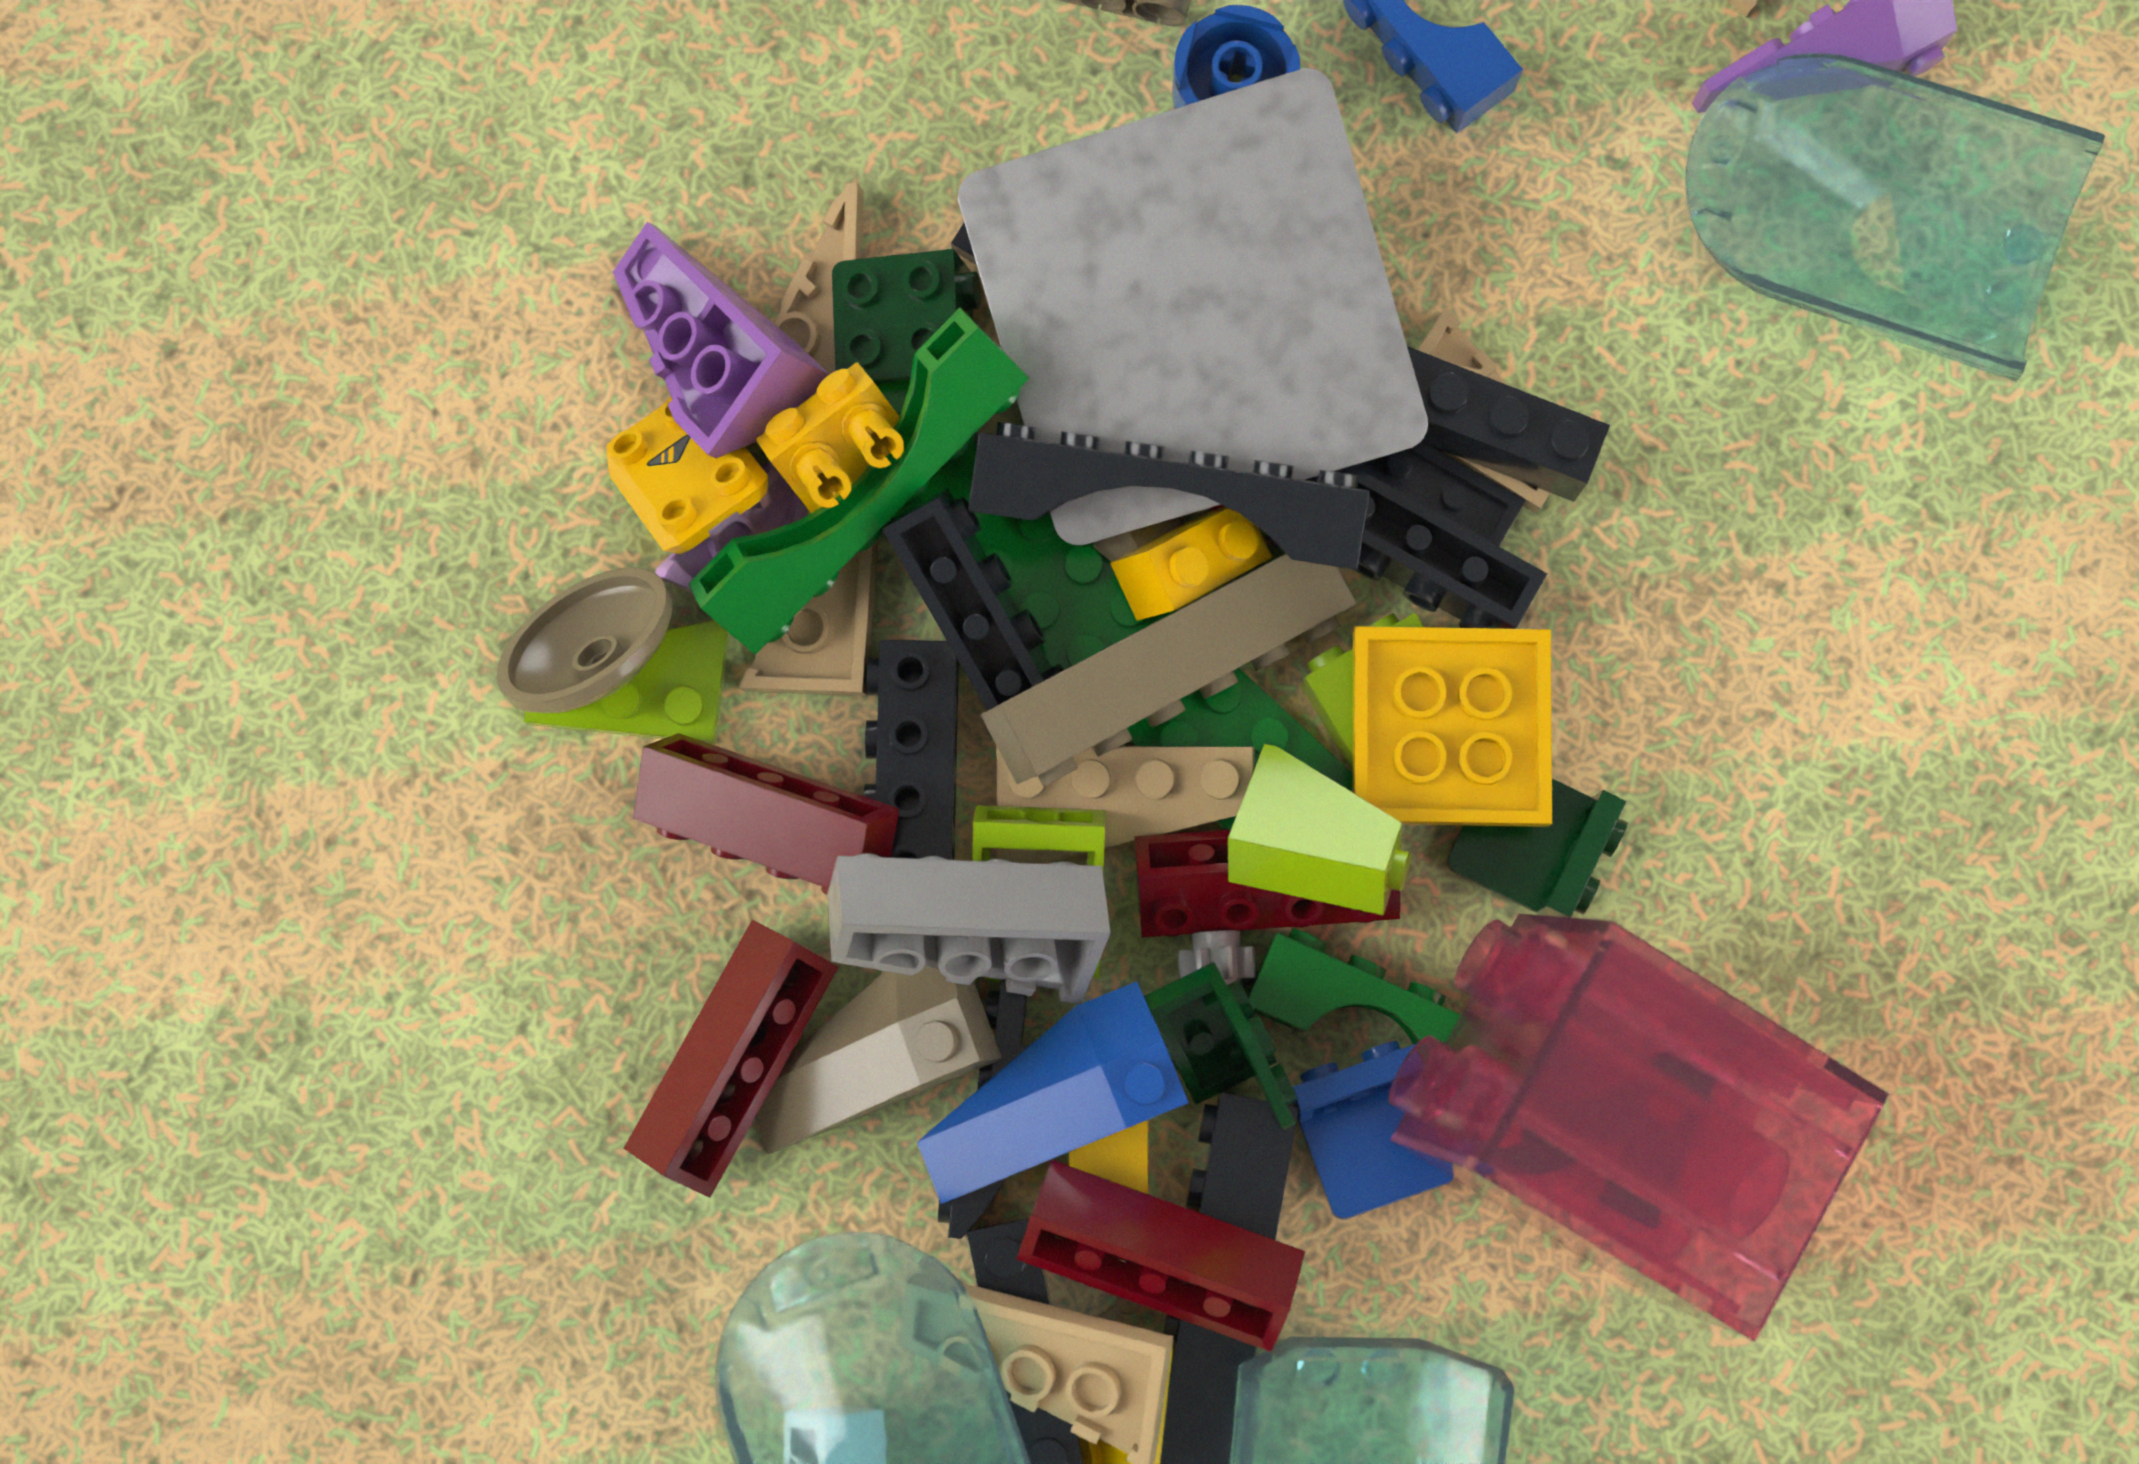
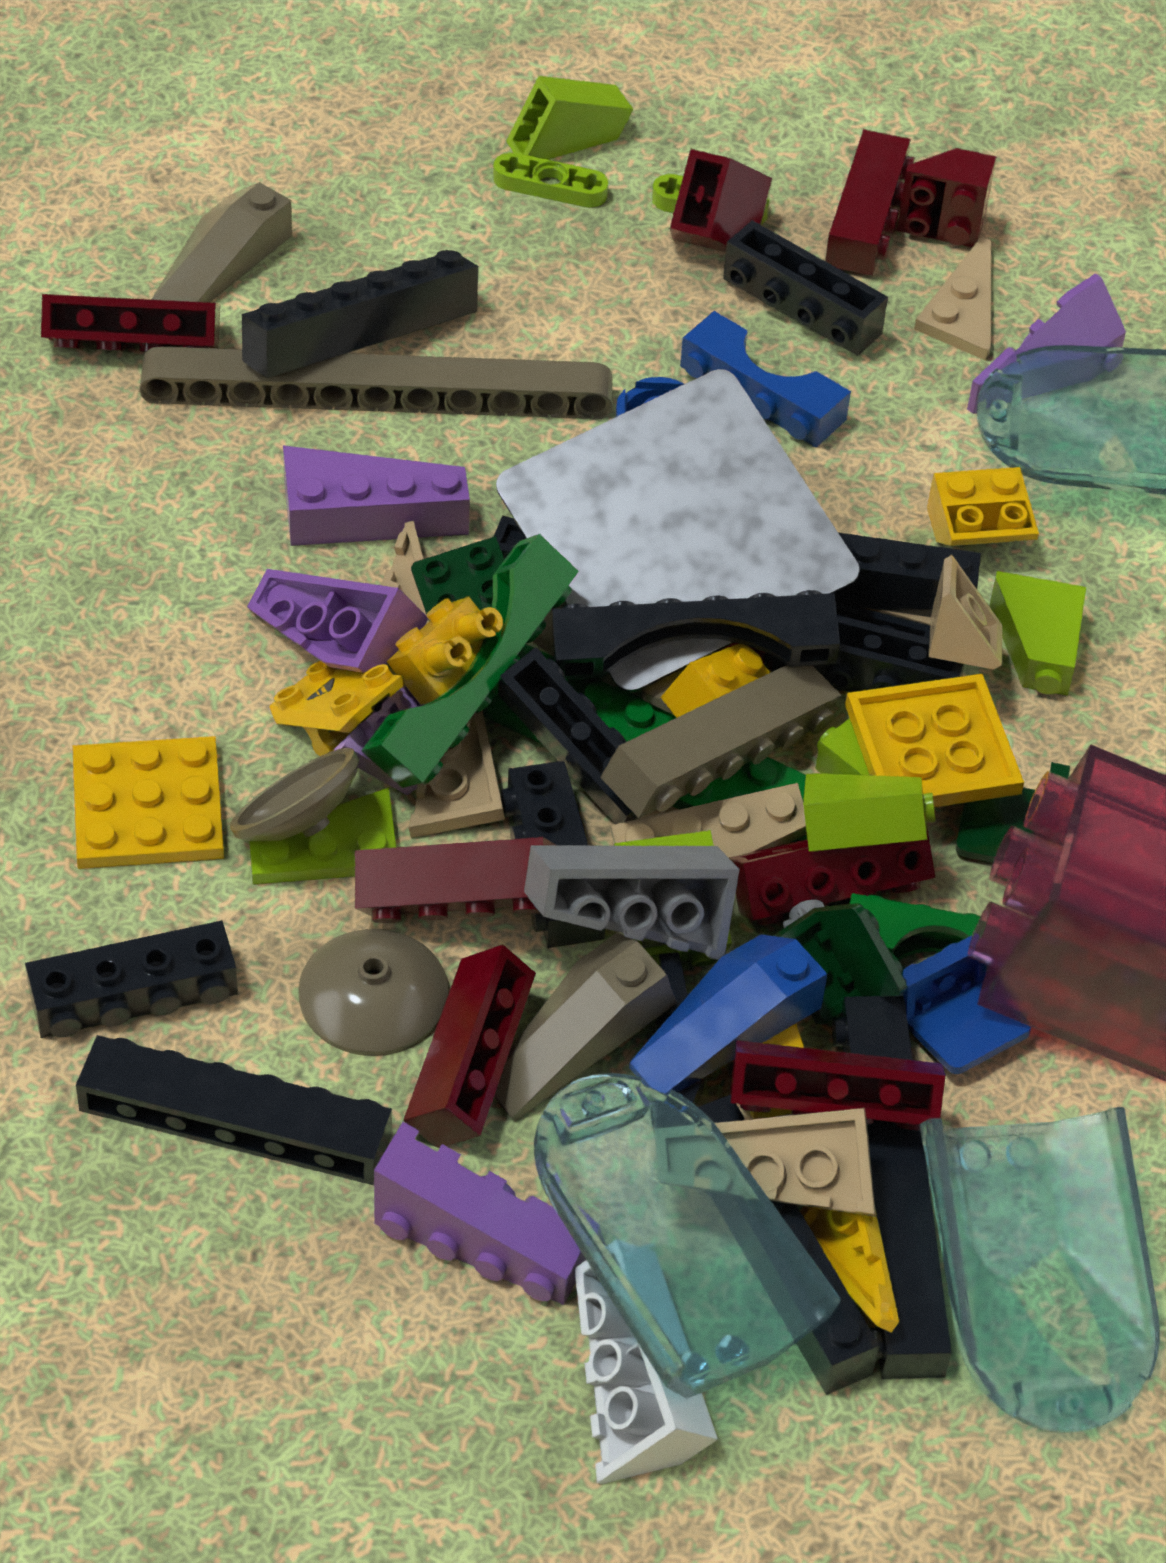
camera: 20 degrees left, 30 degrees down
(337, 859) = (132, 979): none -> black brick
(417, 572) = (147, 802): none -> yellow plate
(424, 1079) = (234, 1109): none -> black brick
(646, 1291) = (472, 1218): none -> medium lavender wedge
(677, 951) = (373, 1011): none -> dark tan dish
(803, 127) = (370, 497): none -> medium lavender wedge
(1551, 544) = (962, 622): none -> tan slope
(1648, 317) = (981, 507): none -> yellow slope
(1670, 531) = (1039, 628): none -> lime slope

